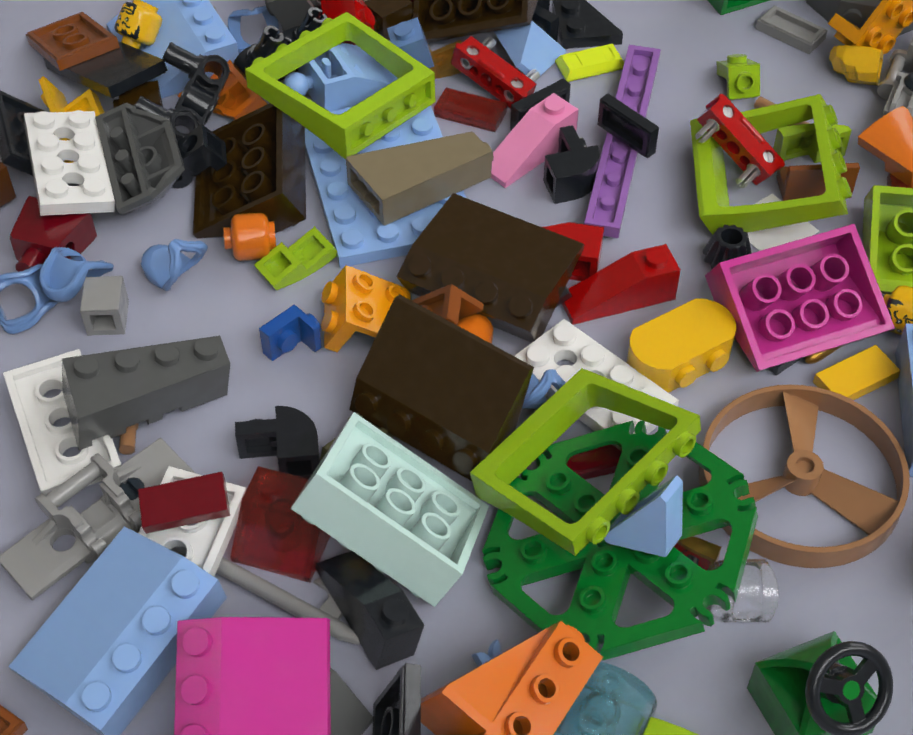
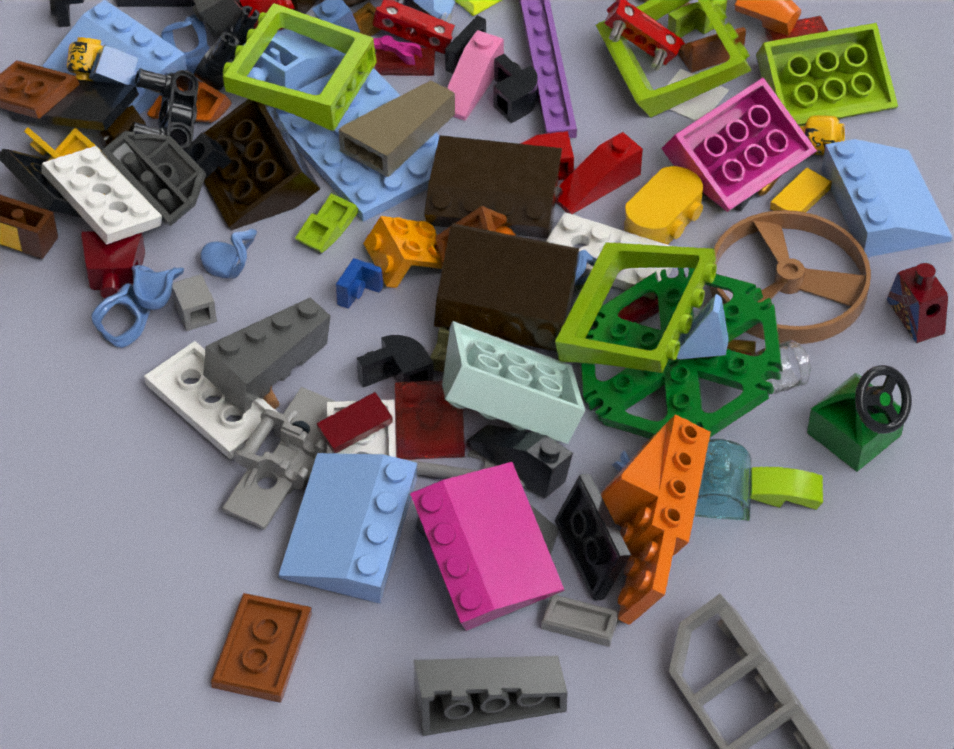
camera: 20 degrees left, 0 degrees up
(152, 35) = (114, 67): none -> brick
(250, 236) = (283, 215): orange head -> none
(469, 95) = (402, 49): none -> dark pink piece
(628, 125) = (549, 42): black tile -> none
(726, 244) = (666, 122): black piece -> none

